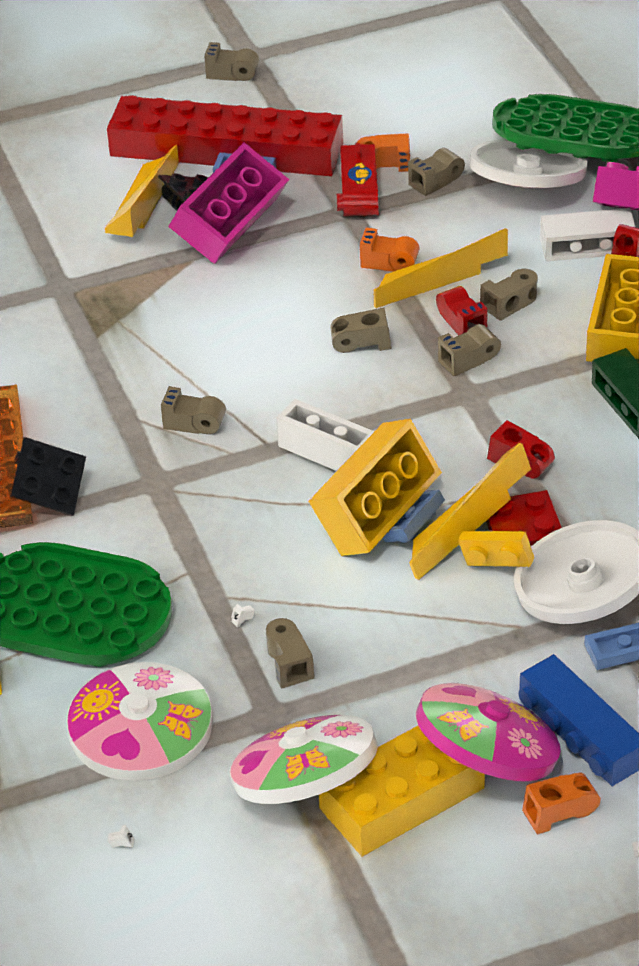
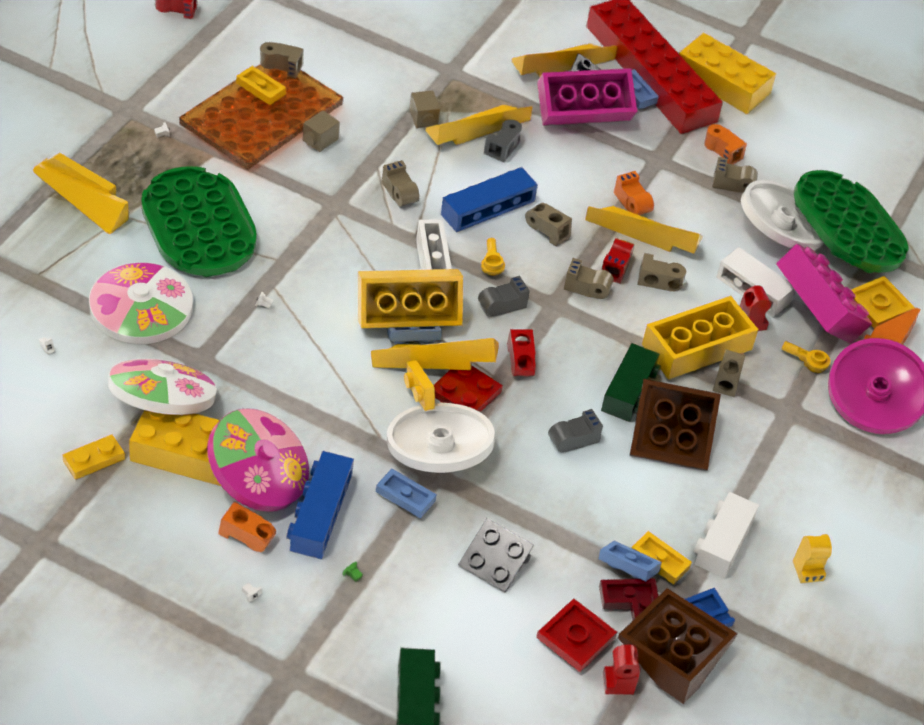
camera: 40 degrees right, 5 degrees up
(46, 424) = (321, 131): none -> dark tan brick
(48, 476) = (280, 152): black hinge -> none
(103, 333) = (424, 109): none -> dark tan brick
(165, 307) = (477, 124): none -> yellow wedge
(213, 300) = (505, 142): none -> dark grey leg
(230, 64) = (722, 28): dark tan leg -> none
(283, 356) = (488, 199): none -> blue brick
(290, 651) = (249, 339): dark tan leg -> none
(303, 87) = (729, 73): none -> yellow brick
(330, 884) = (93, 456): none -> yellow plate
(359, 181) = (670, 150): red door -> none
(372, 404) = (492, 262): none -> yellow plate
(433, 417) = (505, 297): none -> dark grey leg

